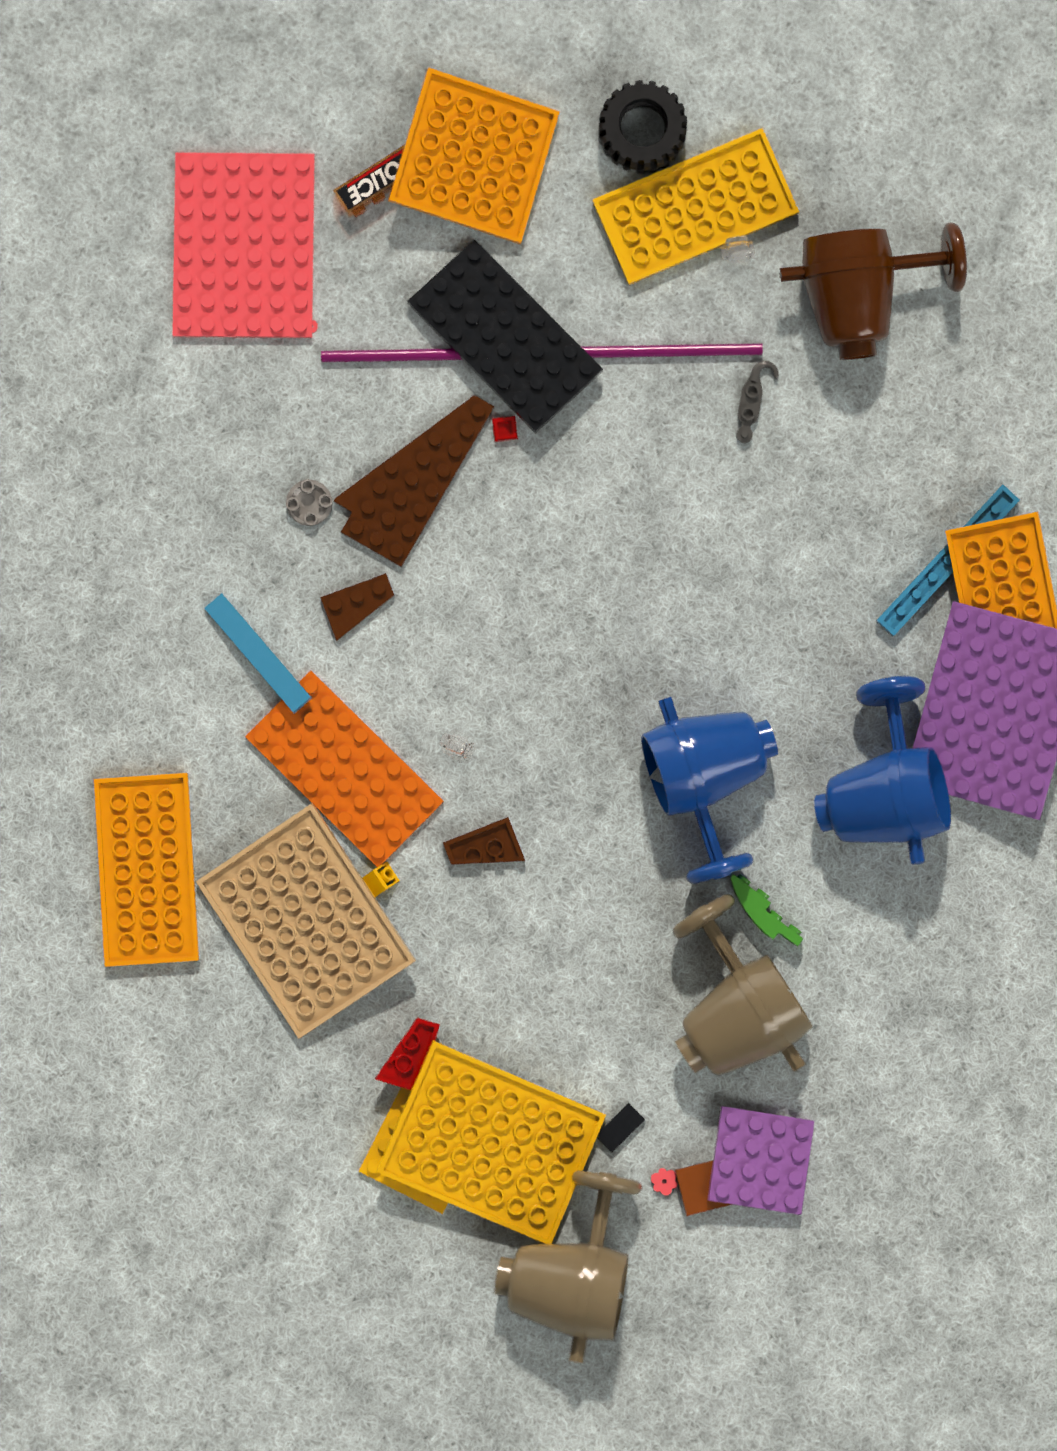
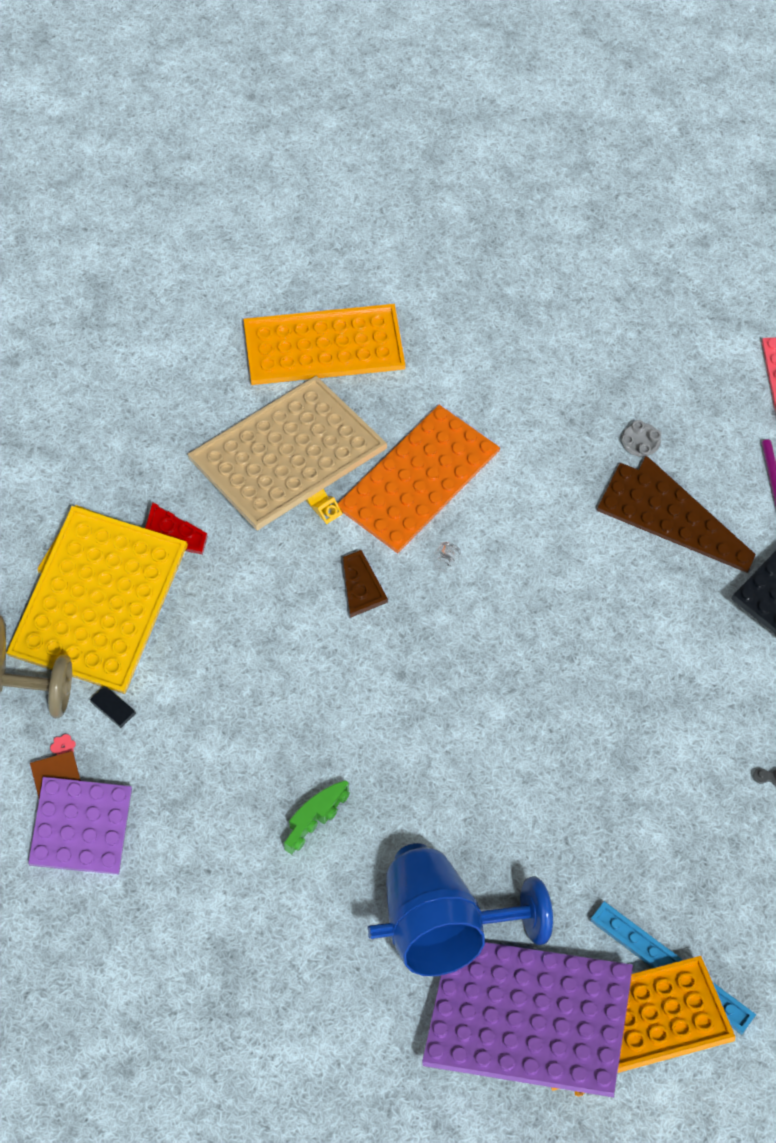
camera: 85 degrees right, 25 degrees down
(258, 653) = (509, 408): dark azure tile -> none
(355, 603) = (561, 477): reddish brown wing -> none
(505, 428) = (730, 580): red tile -> none
(702, 764) = (448, 740): blue piece -> none
(746, 1013) = (212, 787): dark tan piece -> none

